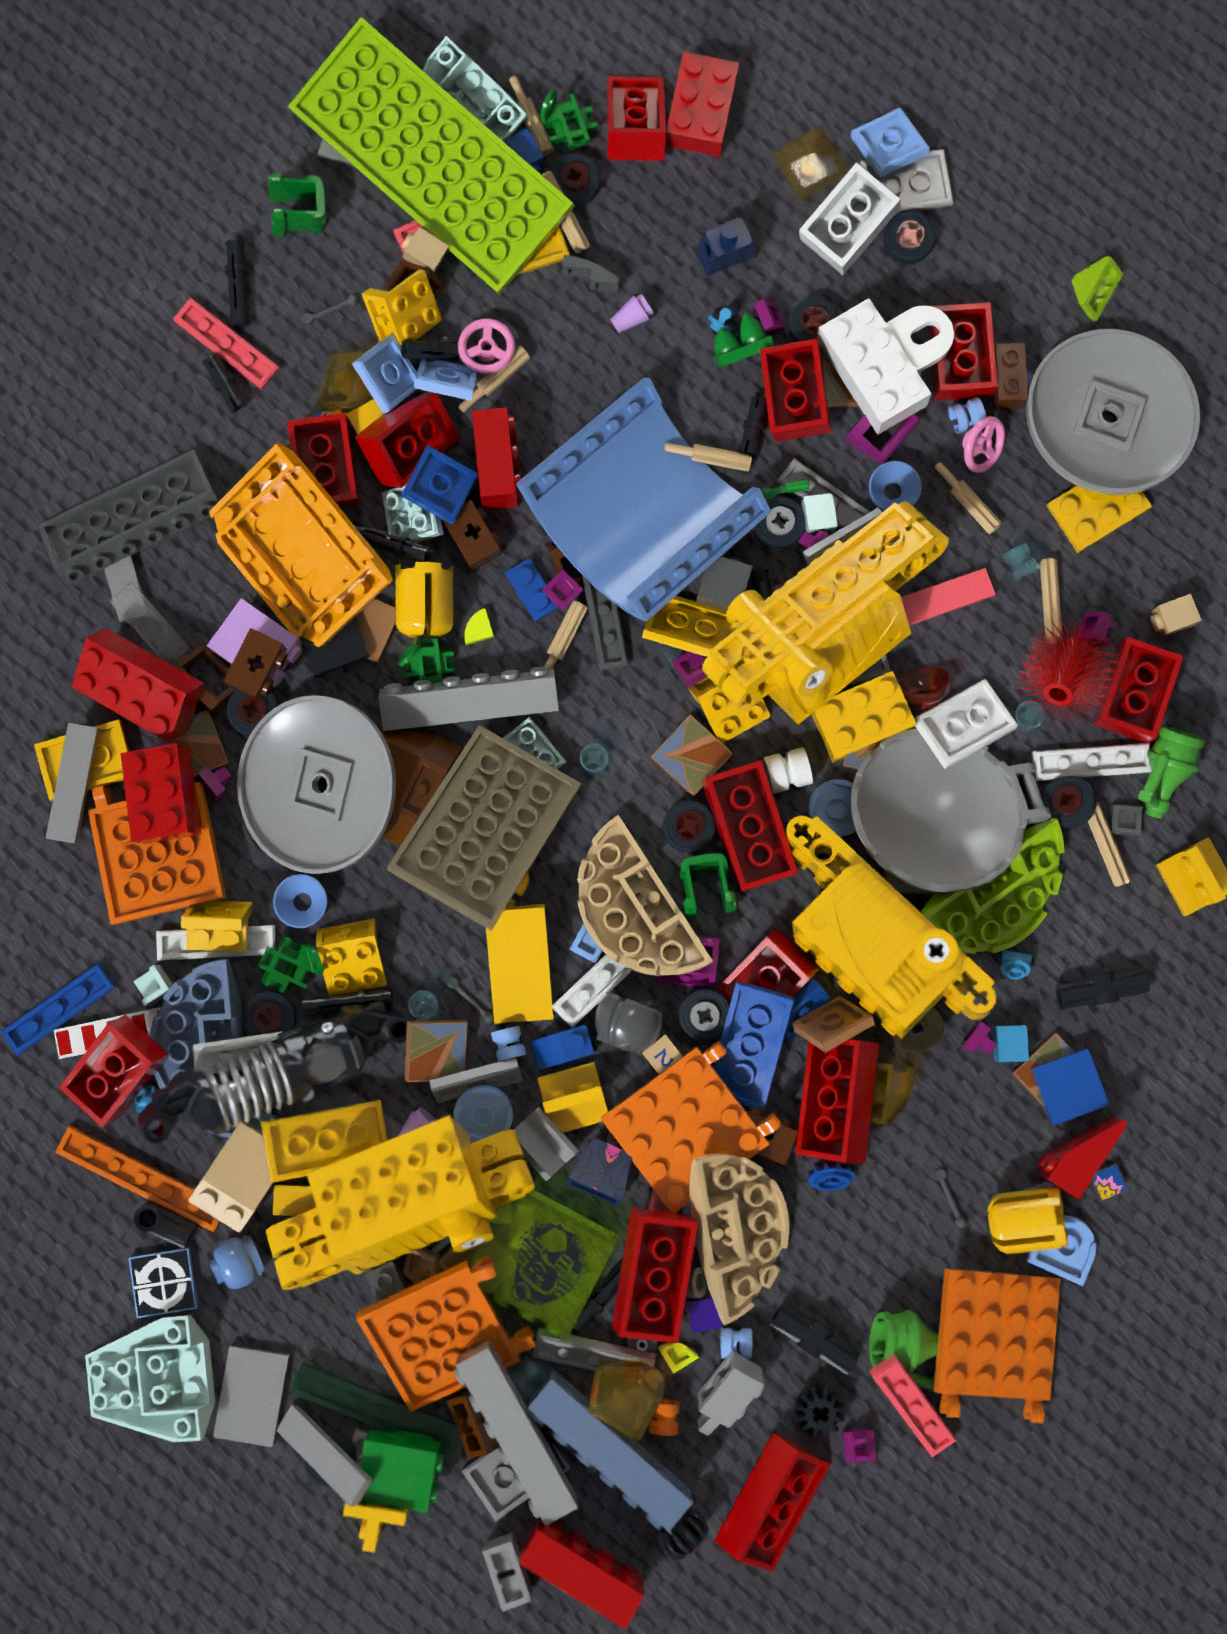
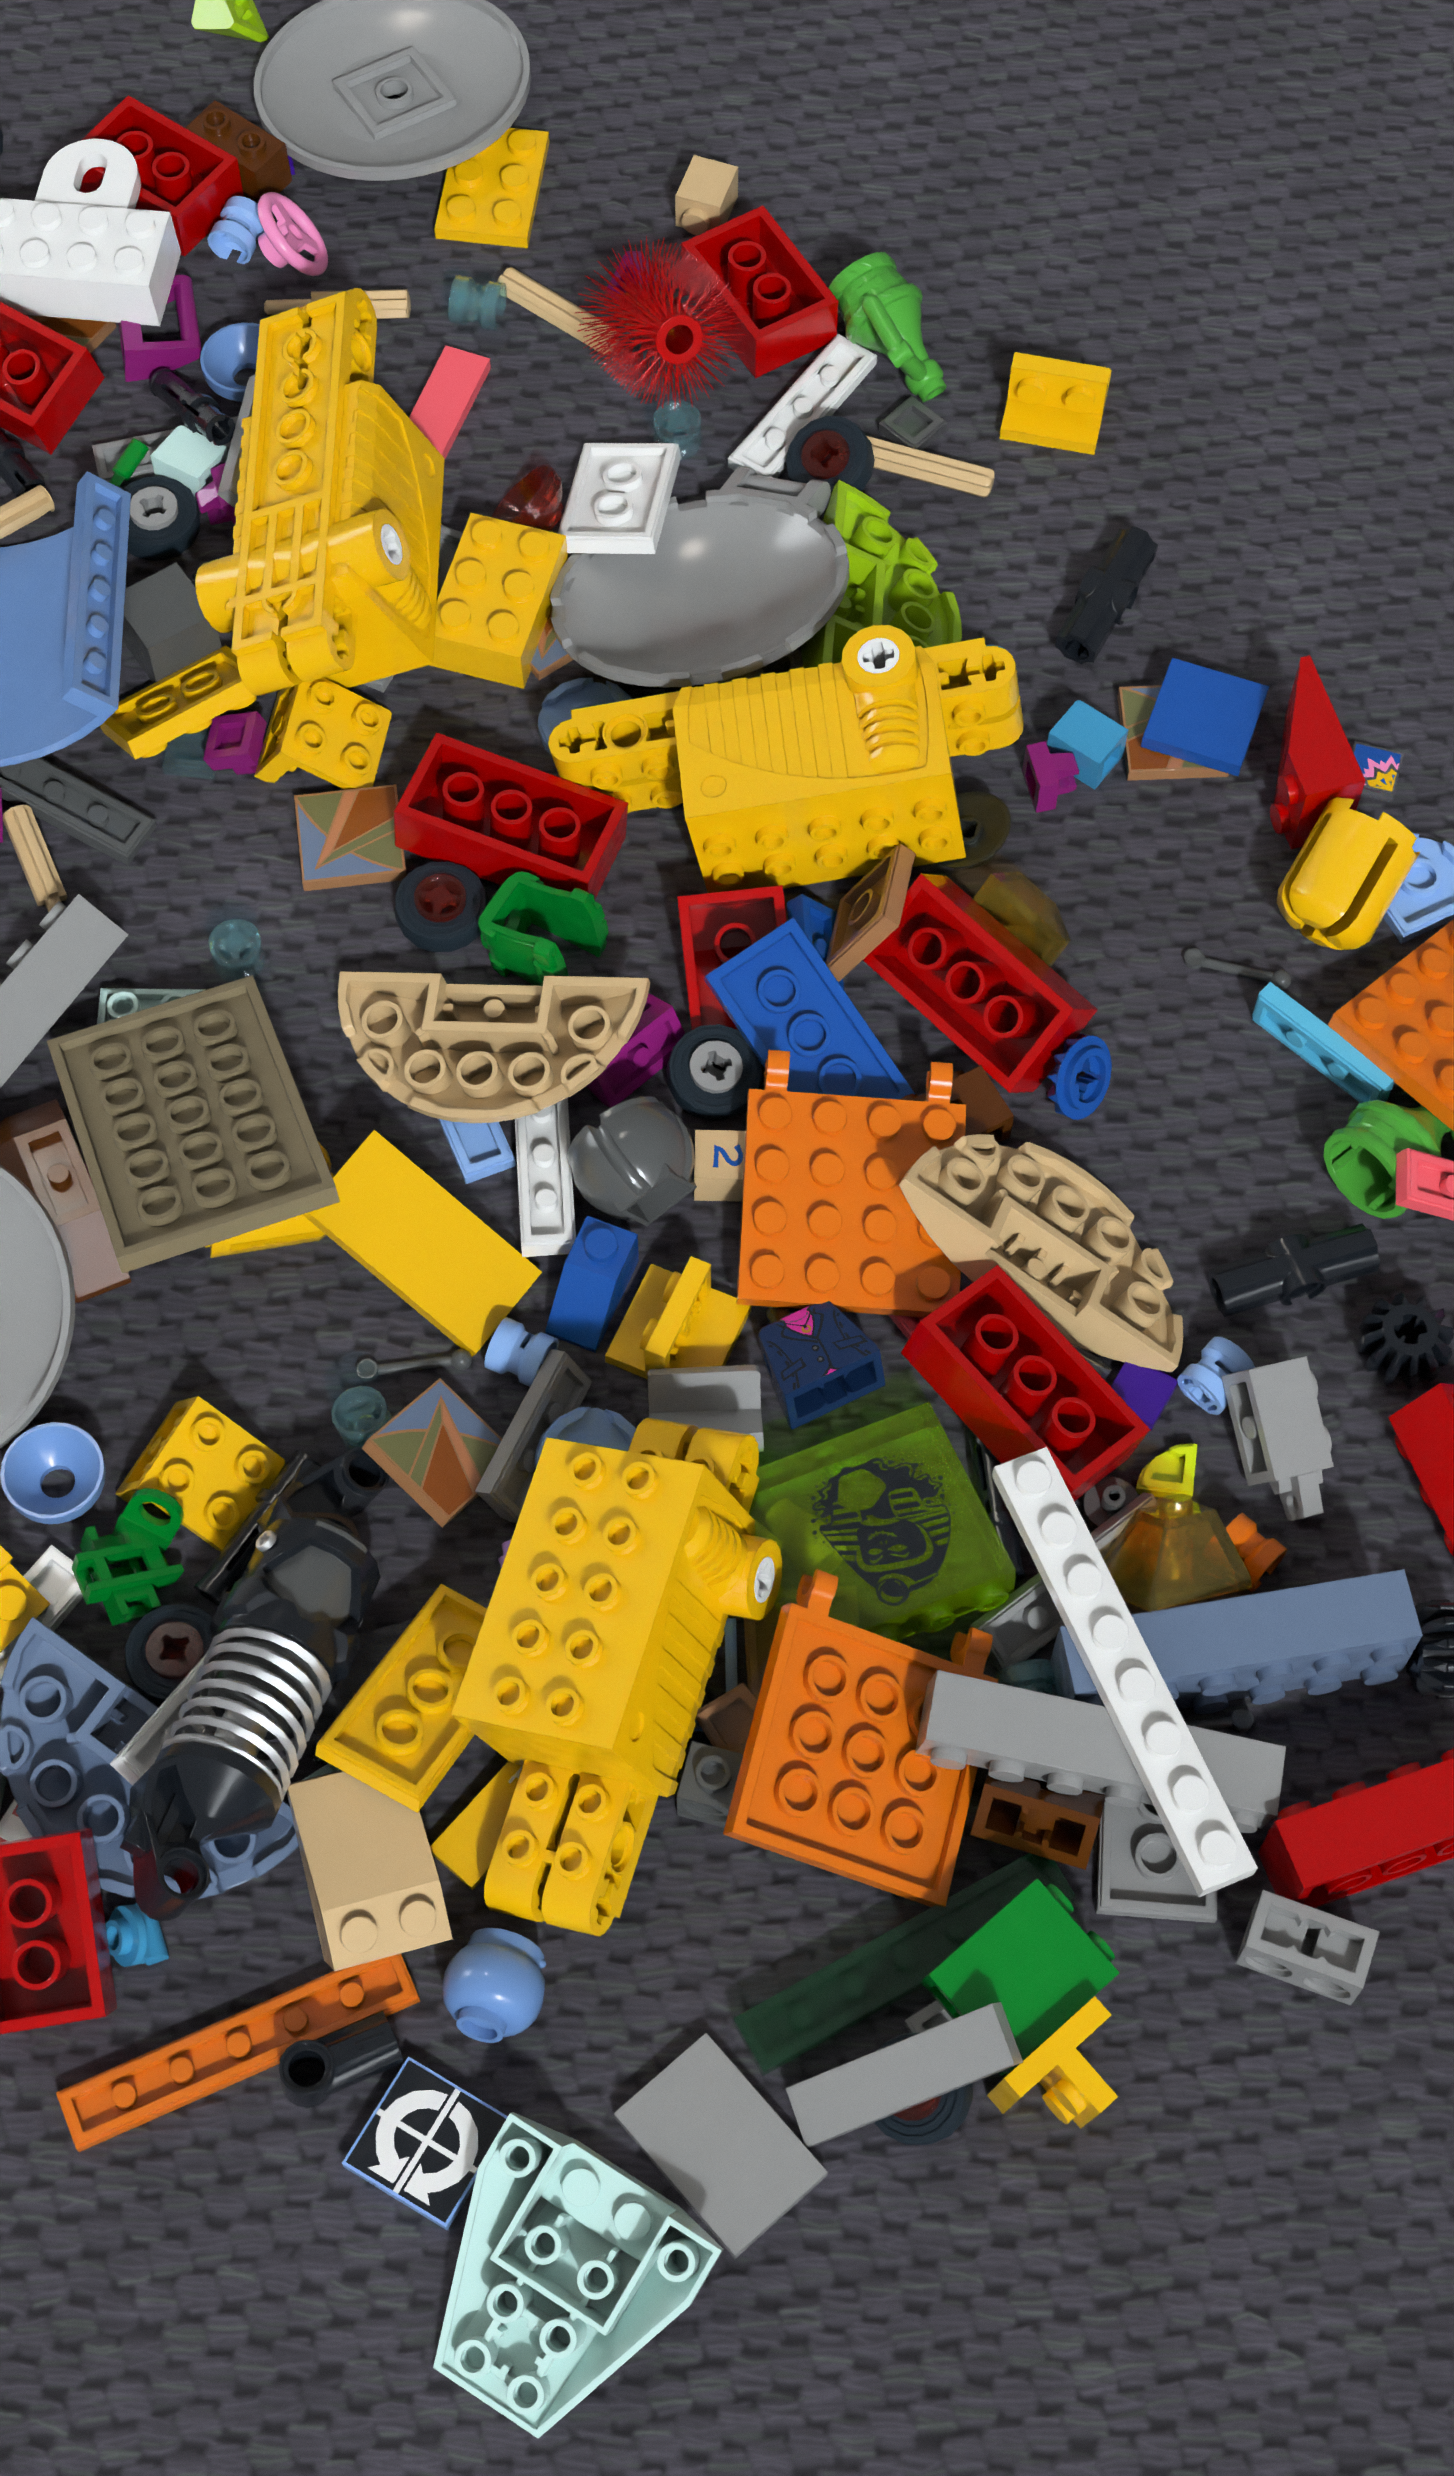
camera: 50 degrees left, 20 degrees down
(551, 1420) = (1124, 1673): none -> white plate
(789, 770) = (488, 720): white wheel -> none
(844, 498) = (184, 399): none -> black pin
(936, 1268) = (1320, 1045): none -> medium azure tile

